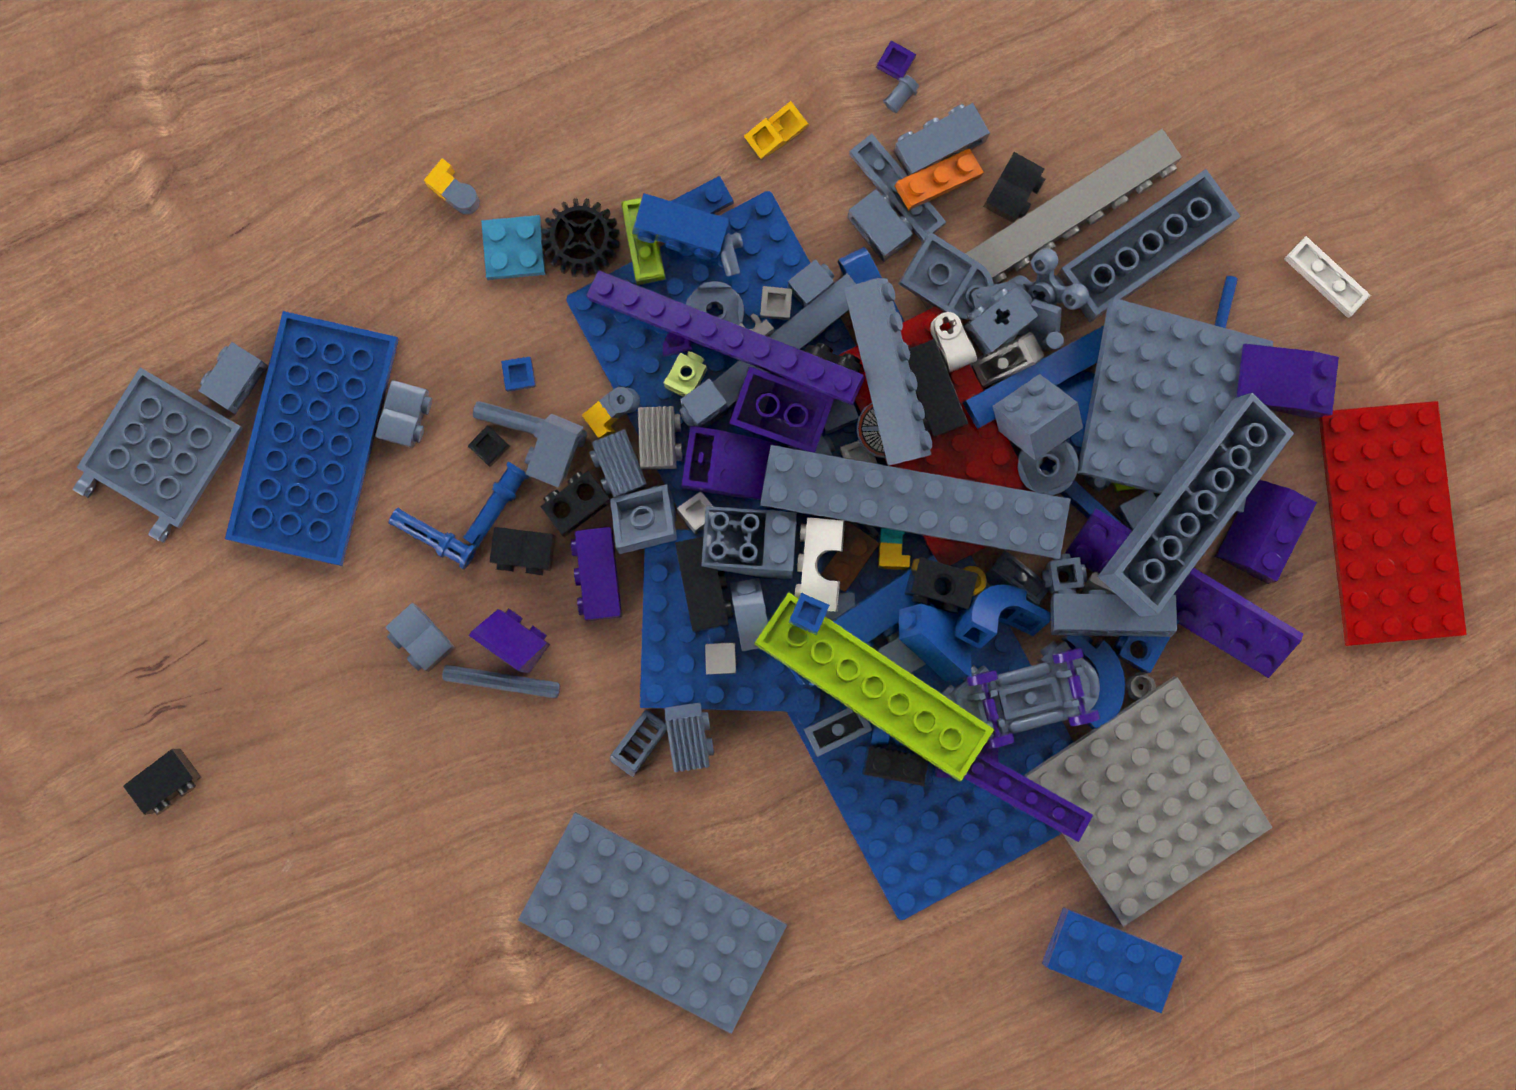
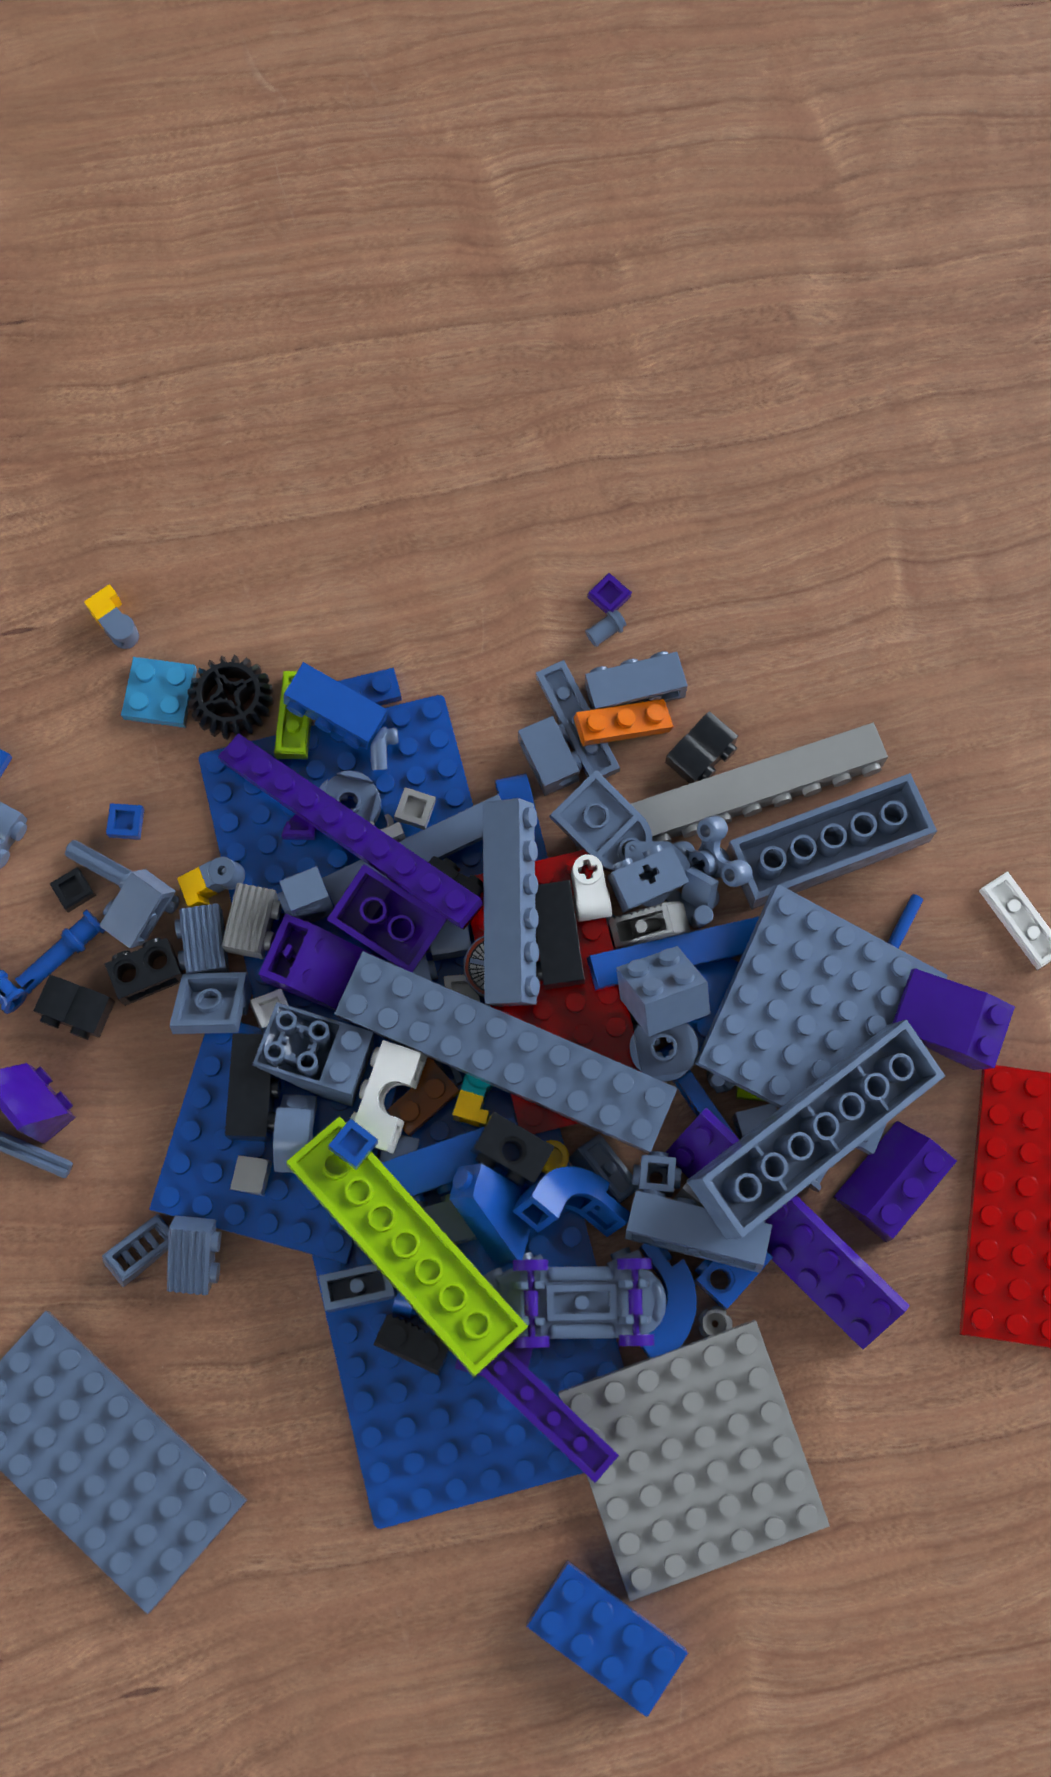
camera: 15 degrees right, 10 degrees down
(596, 574) = (145, 1053): dark purple brick -> none
(683, 385) = (287, 867): yellowish green brick -> none
(776, 131) = (465, 637): yellow slope -> none
(811, 282) = (458, 795): sand blue brick -> none

